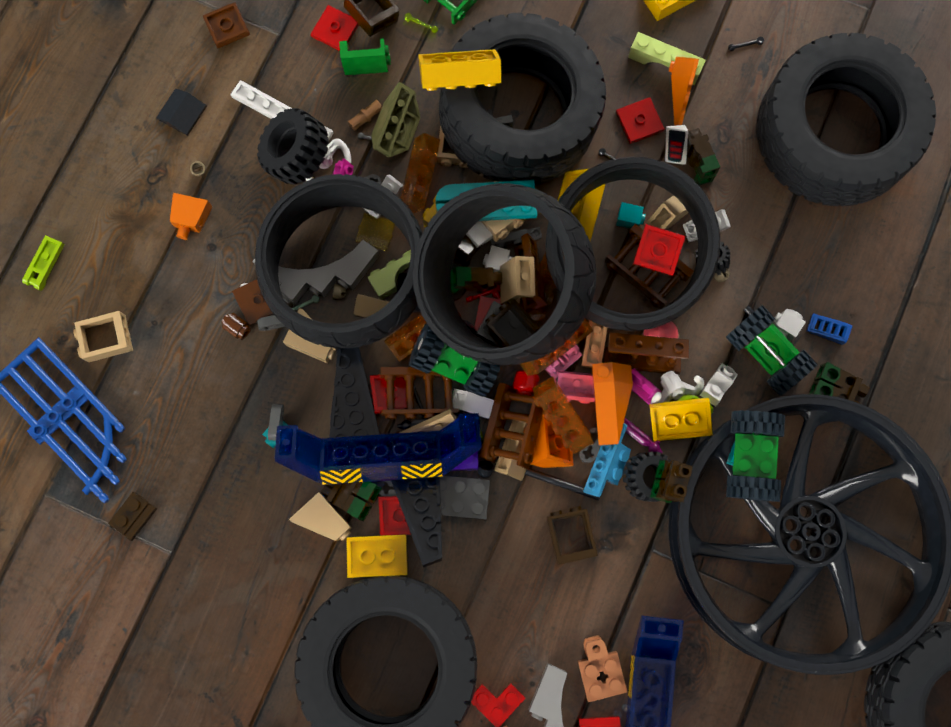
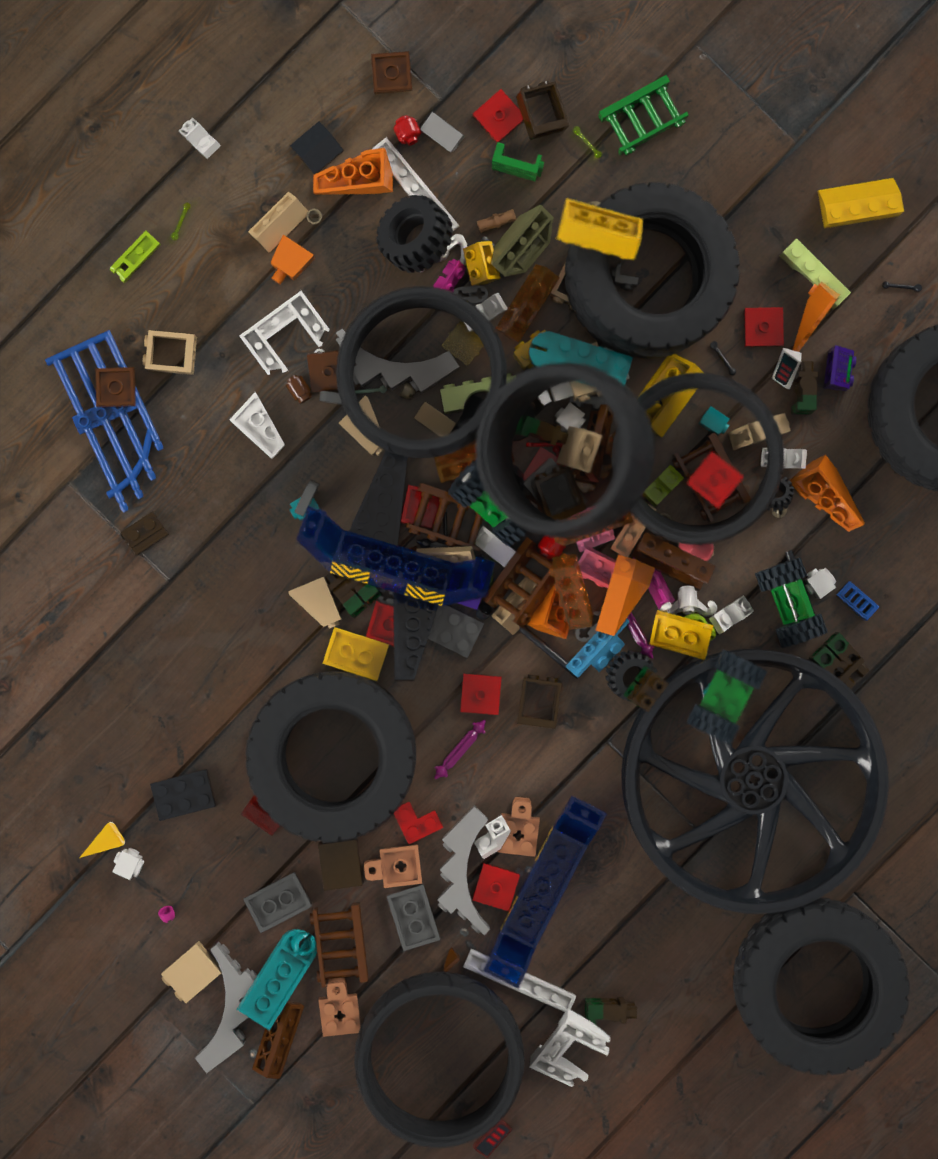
camera: 15 degrees right, 10 degrees up
(58, 386) = (115, 387): none -> reddish brown plate
(70, 139) = (199, 138): none -> white slope
(75, 232) = (174, 235): none -> clear neon green hinge
(169, 181) = (278, 221): none -> tan panel
(207, 254) = (295, 307): none -> white wedge
(208, 374) = (257, 425): none -> white wing
(230, 118) = (359, 175): none -> orange wedge
(257, 67) = (407, 130): none -> red head
(289, 57) = (442, 132): none -> light grey hinge
(363, 155) = (479, 265): none -> yellow brick
(512, 550) = (480, 694): none -> red plate
(512, 612) = (460, 749): none -> magenta wheel
(580, 690) = (494, 838): none -> white slope
(607, 289) = (663, 485): none -> lime slope
(722, 129) = (839, 369): none -> dark purple slope
(757, 239) = (825, 488): none -> orange wedge

